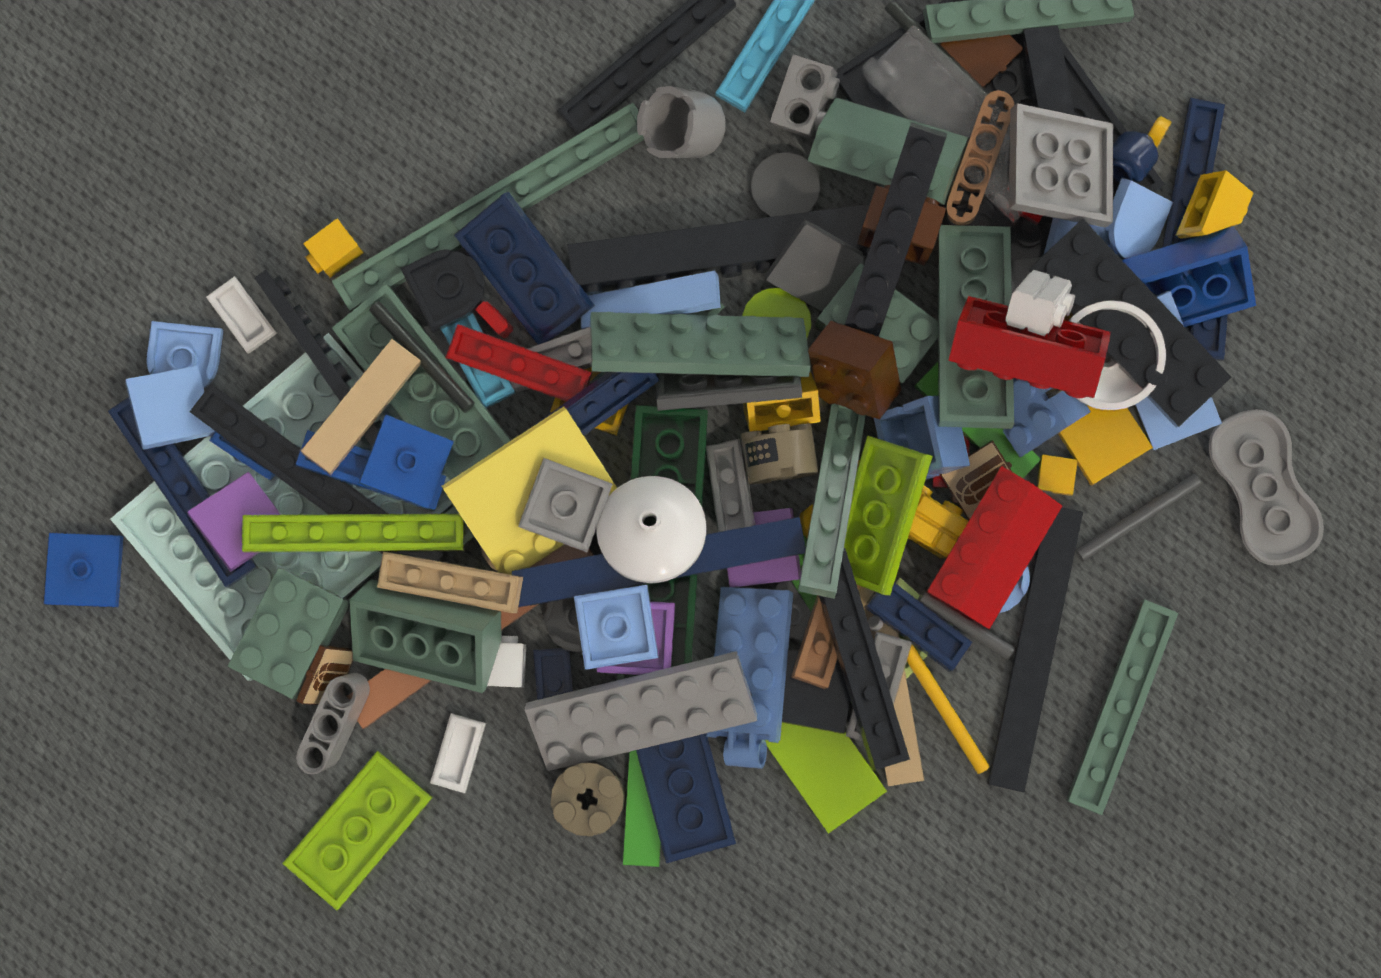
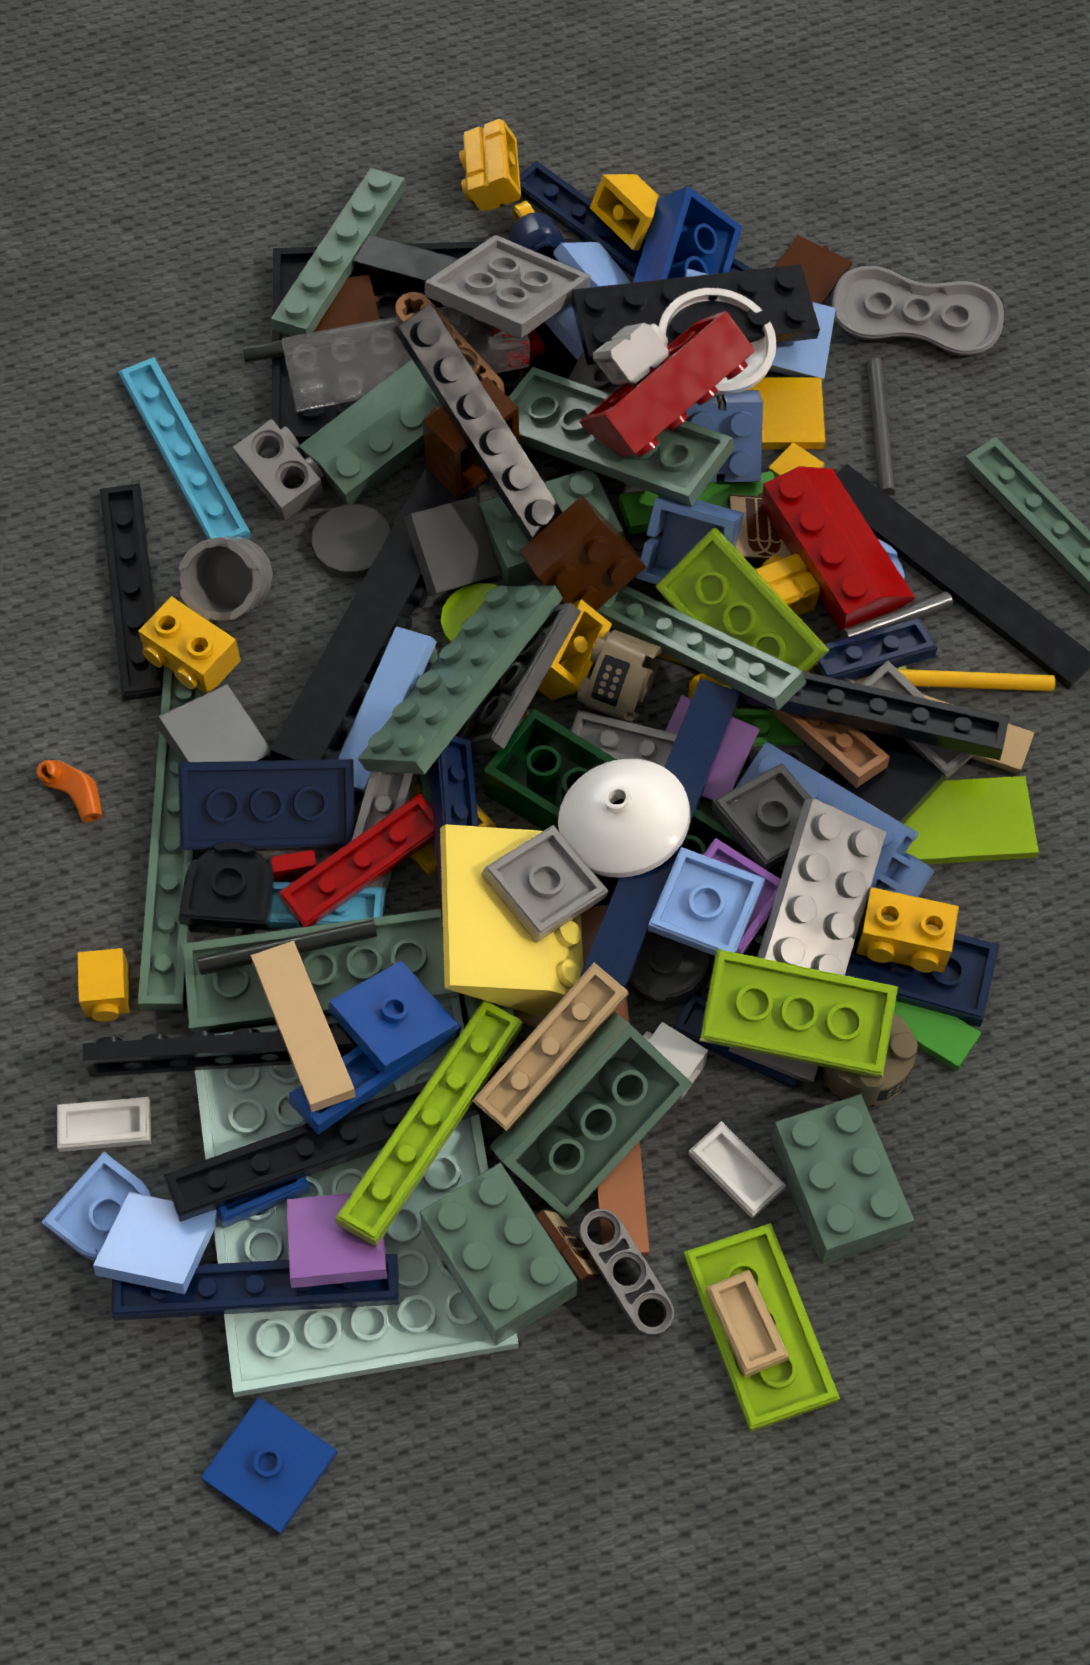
camera: 60 degrees left, 20 degrees down
(348, 822) = (747, 1324): none -> tan tile
(469, 128) = (76, 784): none -> orange arm
(485, 829) = (841, 1179): none -> sand green brick
(558, 197) = (213, 730): none -> tile
(570, 739) = (798, 1013): none -> lime tile
(611, 134) = (189, 646): none -> yellow brick
(696, 776) = (907, 930): none -> yellow brick
(721, 626) = (763, 815): none -> dark grey tile
(1191, 74) = (490, 166): none -> yellow brick
(1256, 379) = (820, 266): none -> reddish brown piece

